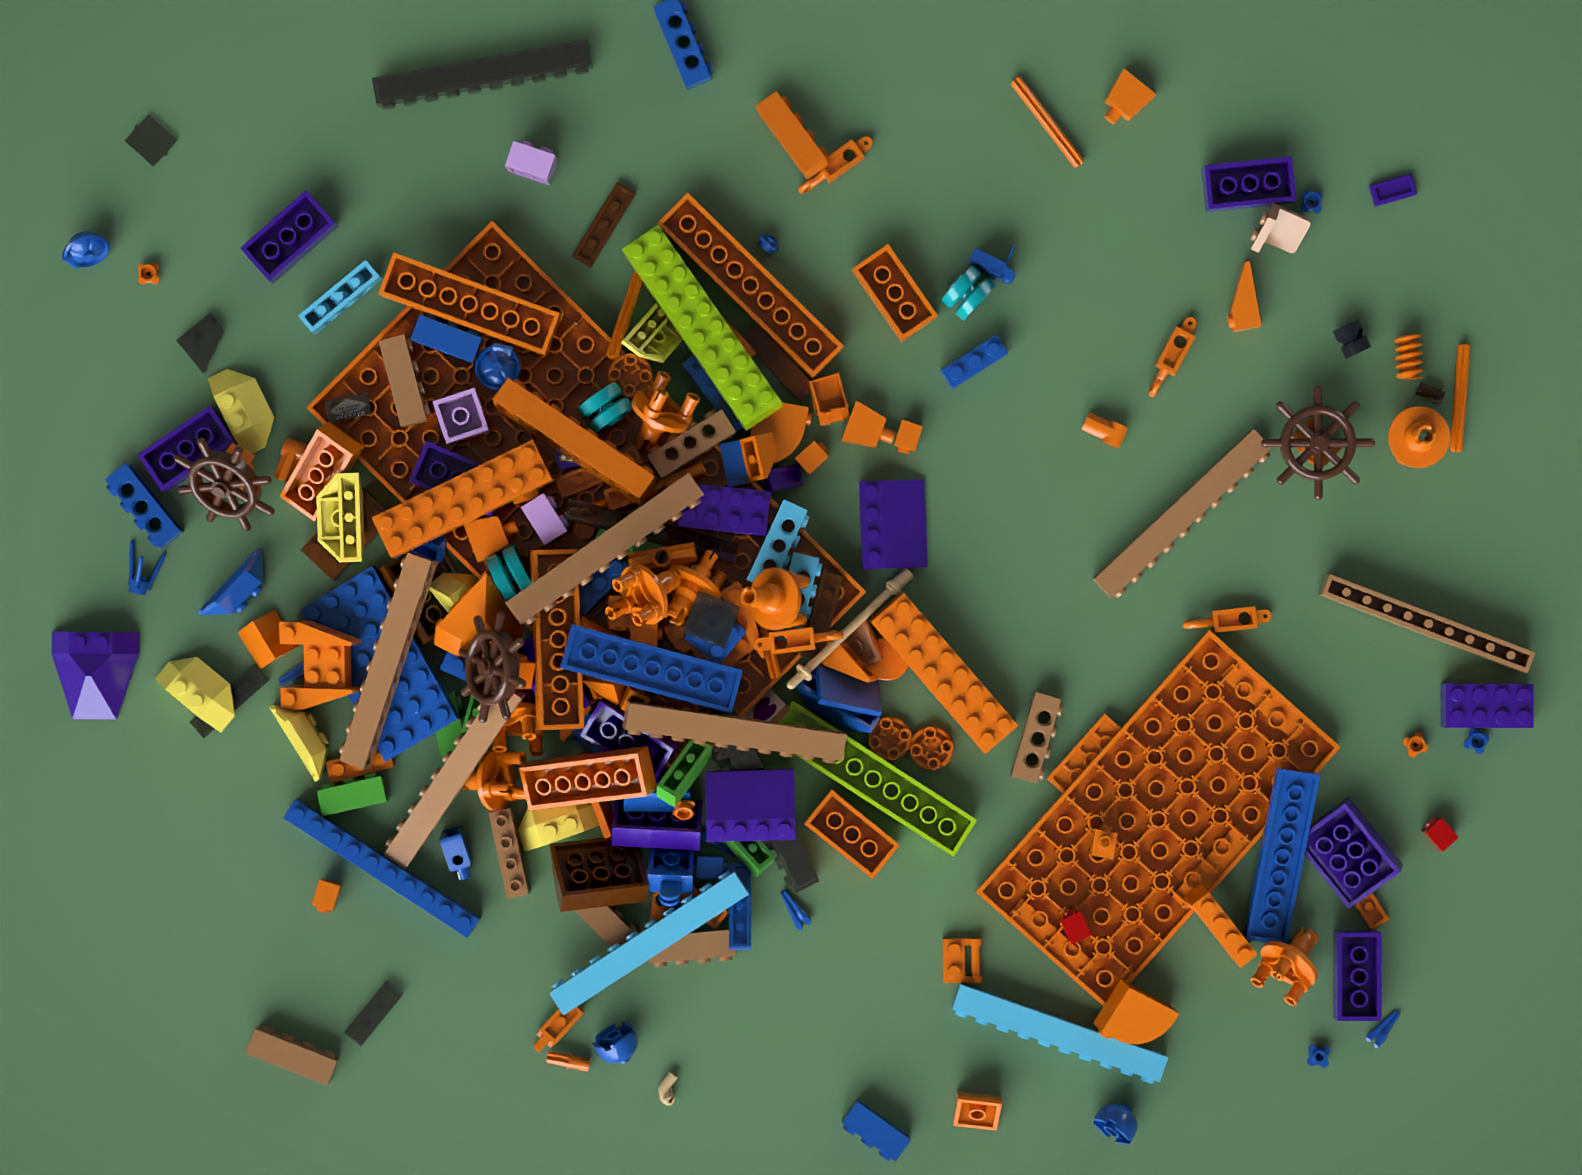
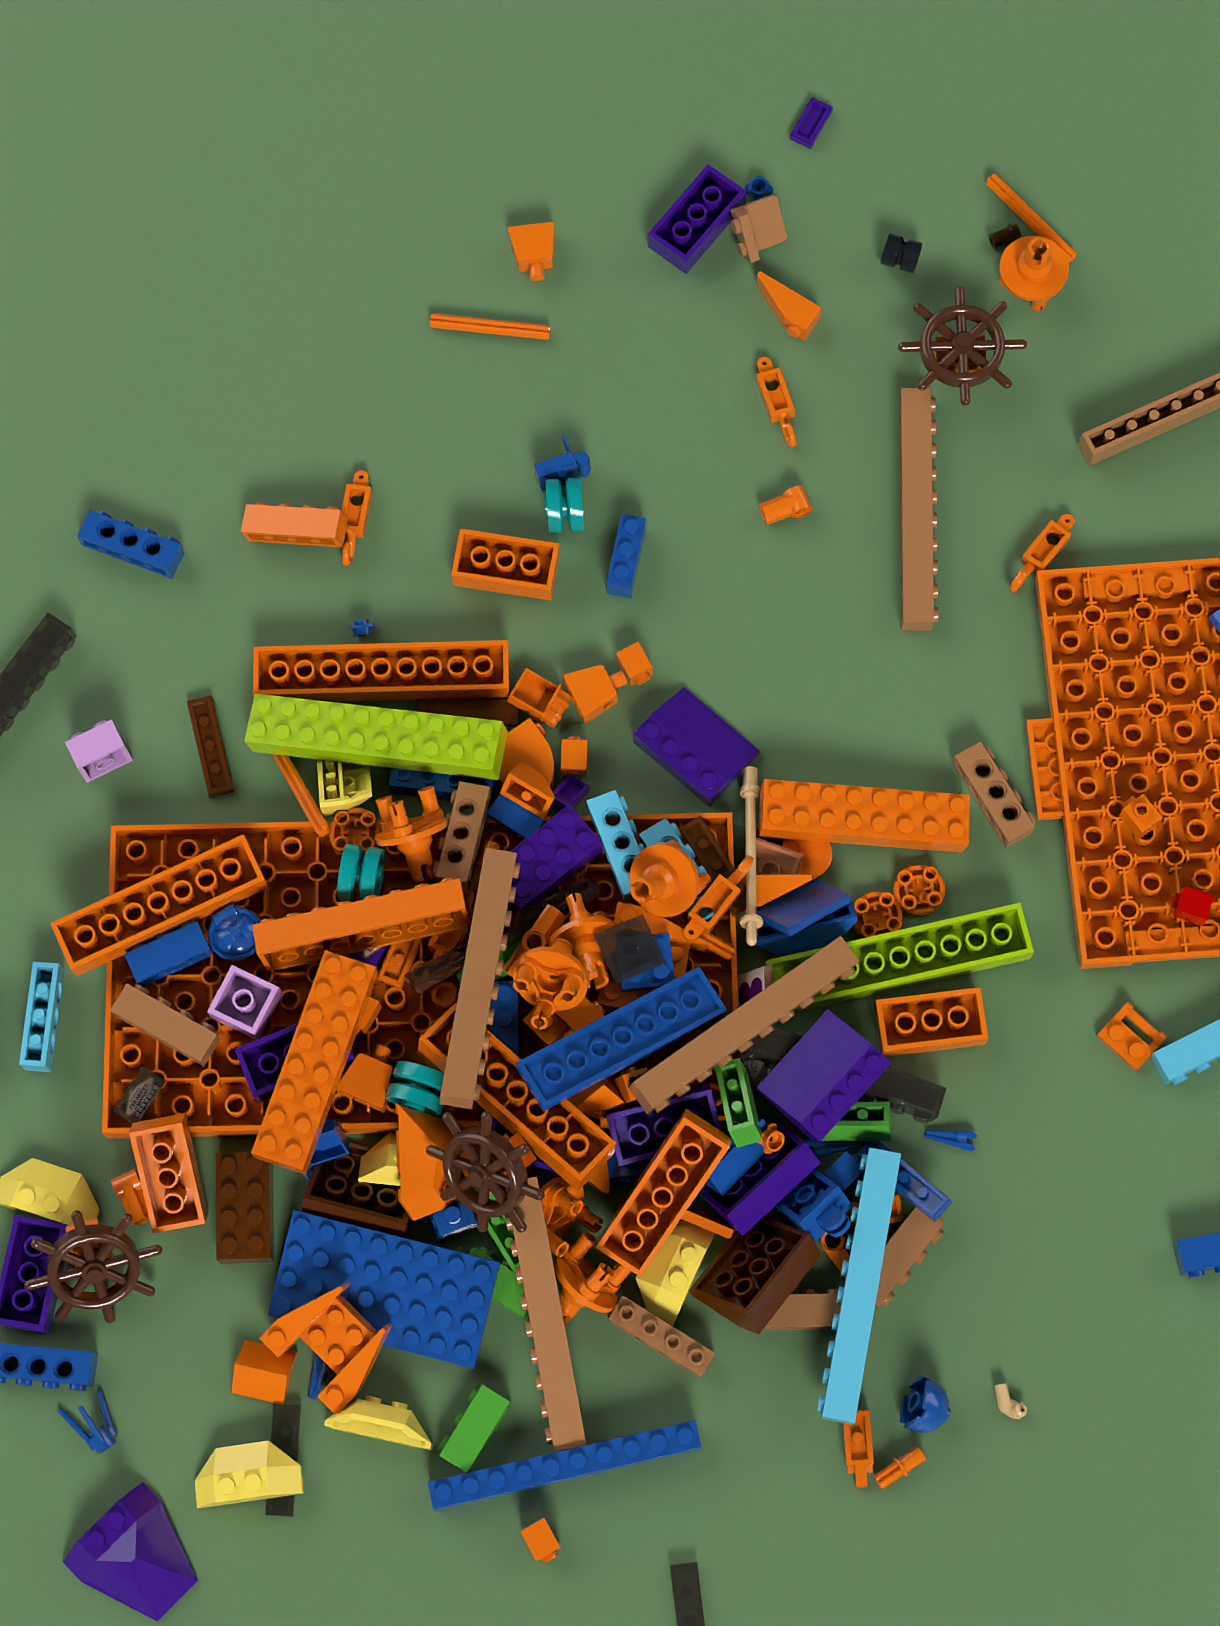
camera: 45 degrees left, 15 degrees down
(239, 588) = (194, 1353): blue wedge -> none
(340, 770) = (452, 1399): orange plate -> none
(342, 517) = (224, 1188): light yellow wedge -> none
(388, 660) = (388, 1273): medium nougat brick -> none
(455, 843) = (605, 1378): blue torso -> none
(545, 519) = (403, 1013): lavender brick -> none
(1408, 357) = (958, 225): orange piece -> none

